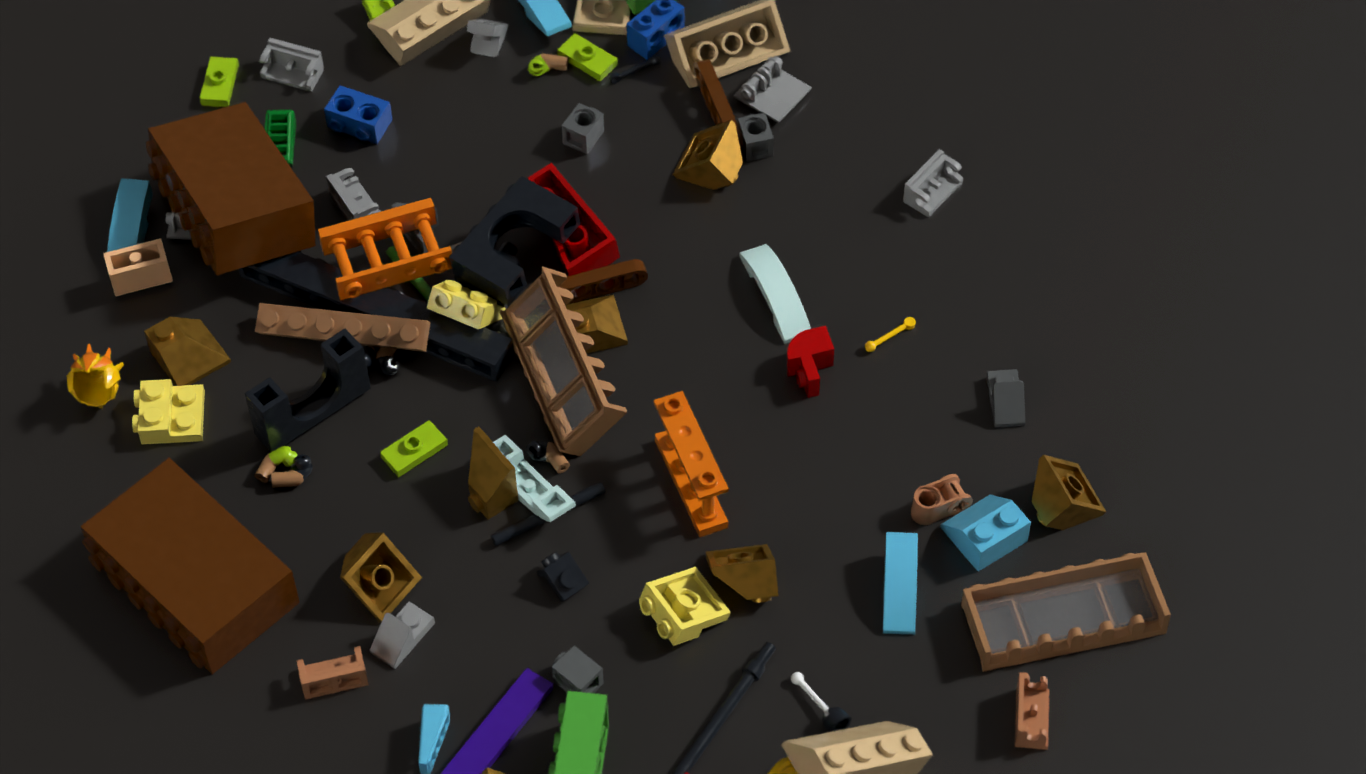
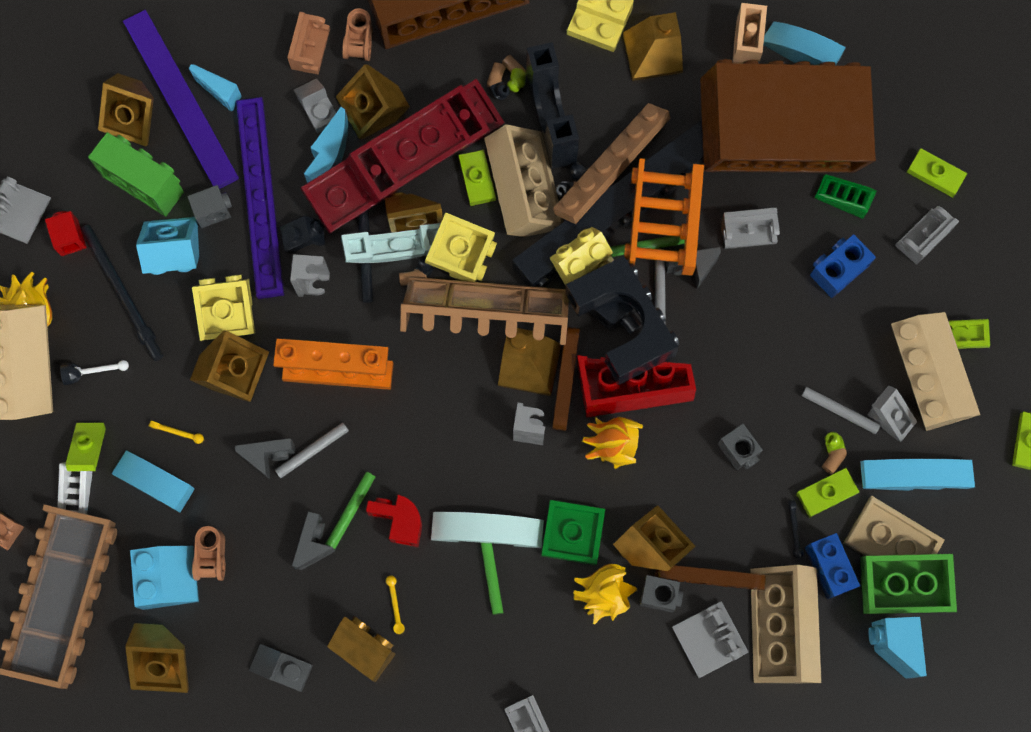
camera: 115 degrees right, 20 degrees up
(301, 624) = (358, 39): none -> nougat piece
(401, 400) = (523, 180): none -> tan slope
(454, 589) = (329, 146): none -> medium azure slope
(458, 498) = (402, 154): none -> dark red bracket
(502, 75) = (841, 410): none -> light grey bar
(506, 415) = (461, 249): none -> light yellow plate
(537, 640) = (260, 198): none -> dark purple tile
(608, 534) = (306, 271): none -> light grey hinge
(635, 211) = (614, 441): none -> yellow hair
(641, 692) = (168, 245): none -> medium azure slope
(659, 286) = (526, 428): none -> light grey hinge
(738, 222) = (573, 532): none -> green plate
(779, 170) = (605, 592): none -> yellow hair
(785, 466) = (311, 450): none -> light grey bar
(814, 501) = (258, 453): none -> dark grey slope
(821, 268) = (492, 579): none -> bright green bar
(824, 408) = (350, 510): none -> bright green bar
(832, 572) = (197, 438): none -> yellow hinge
(882, 419) = (308, 551): none -> dark grey slope
(903, 657) = (85, 447): none -> lime plate
(932, 663) = (84, 491): none -> white slope
(946, 329) = (360, 649): none -> pearl gold slope

